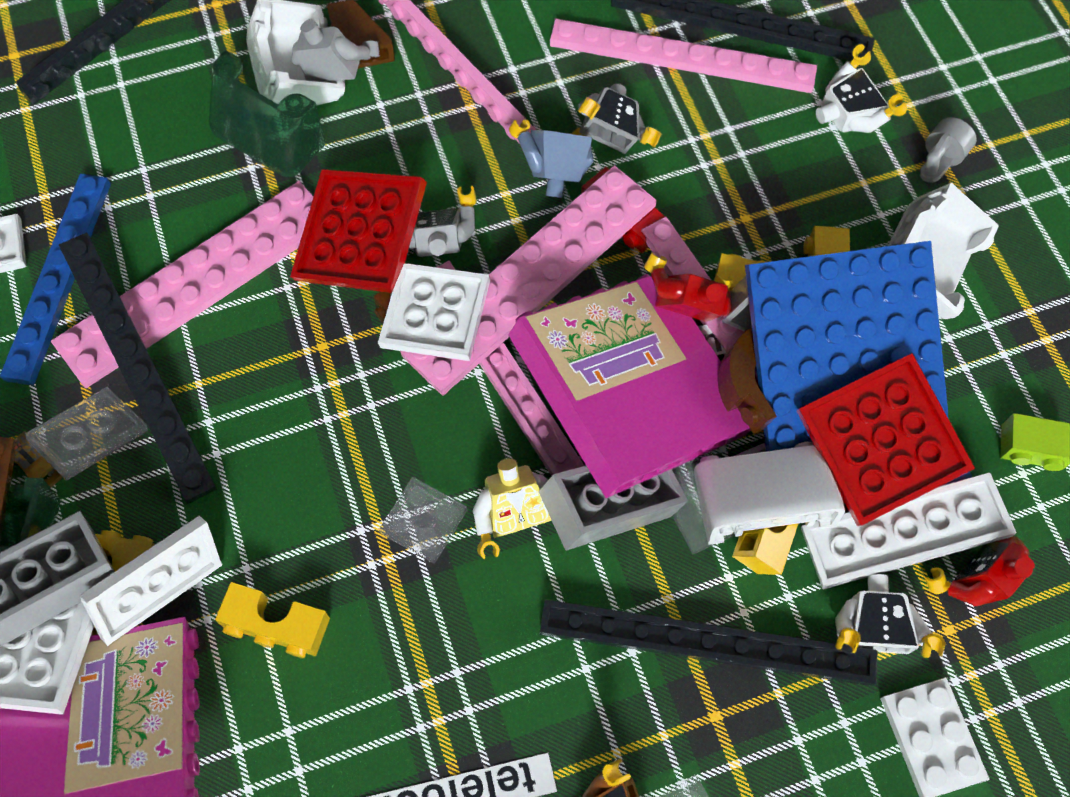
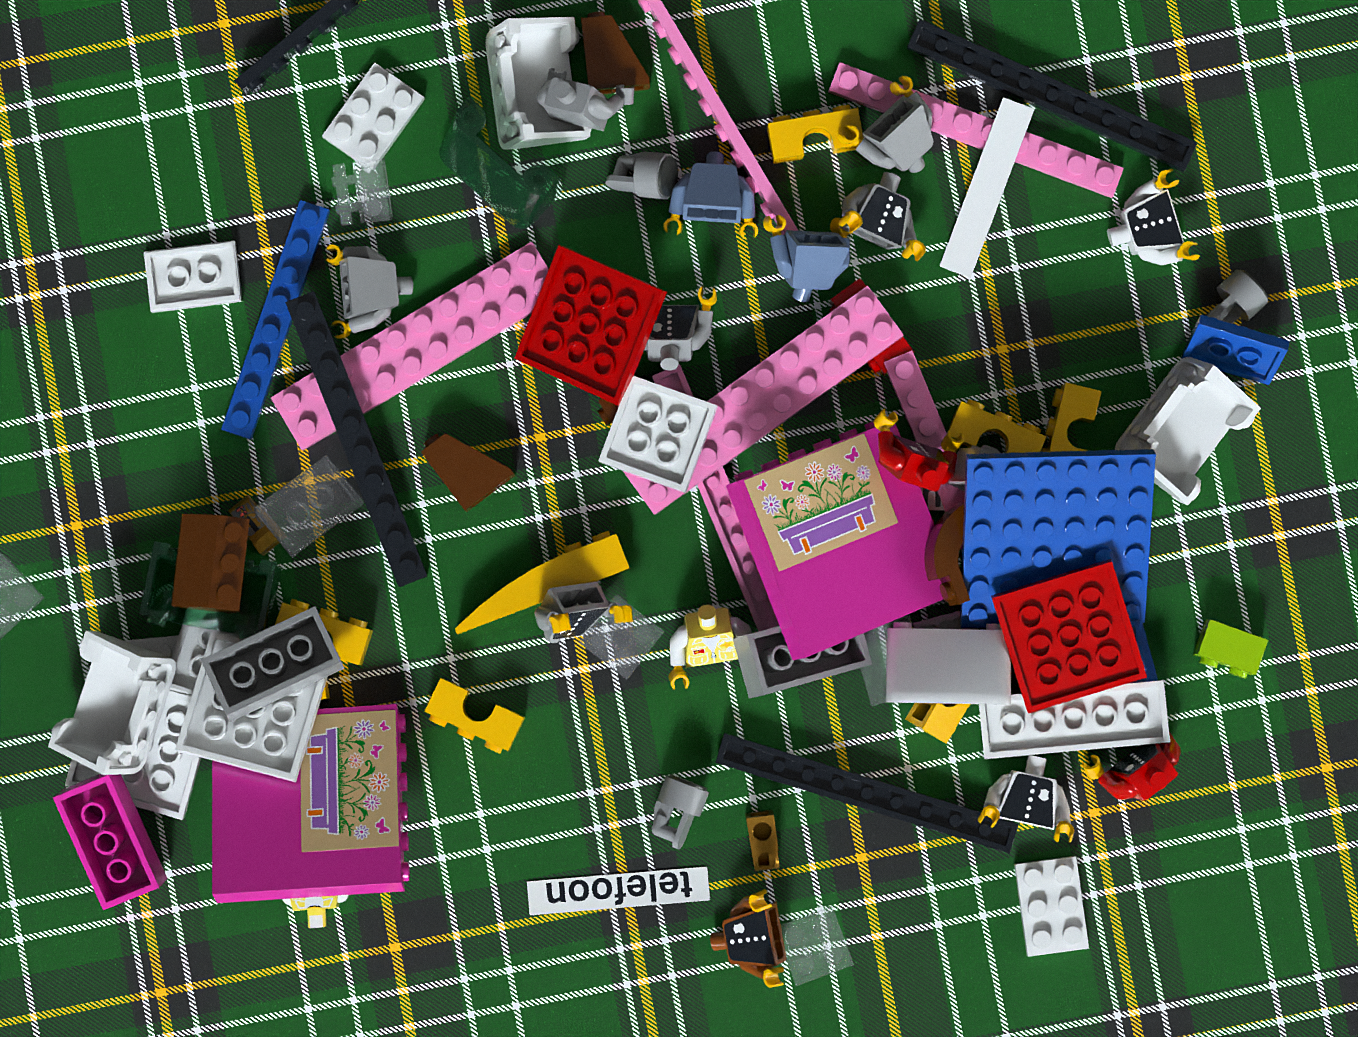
camera: 10 degrees right, 20 degrees up
(143, 234) = (367, 287): none -> light grey torso
(146, 155) = (371, 191): none -> clear plate
(148, 106) = (373, 116): none -> white plate
(151, 580) = (372, 670): white plate -> none
(249, 380) = (465, 470): none -> reddish brown slope
(340, 473) = (574, 567): none -> yellow slope
(368, 491) = (575, 609): none -> light grey torso
(401, 114) = (652, 176): none -> light grey piece
(460, 120) = (712, 194): none -> sand blue torso
(510, 673) = (683, 796): none -> light grey piece
(563, 62) = (788, 134): none -> yellow arch
(606, 711) = (763, 839): none -> pearl gold leg
(615, 55) = (899, 134): none -> light grey torso
(702, 93) = (986, 187): none -> white sticker
(975, 175) = (1236, 349): none -> blue plate

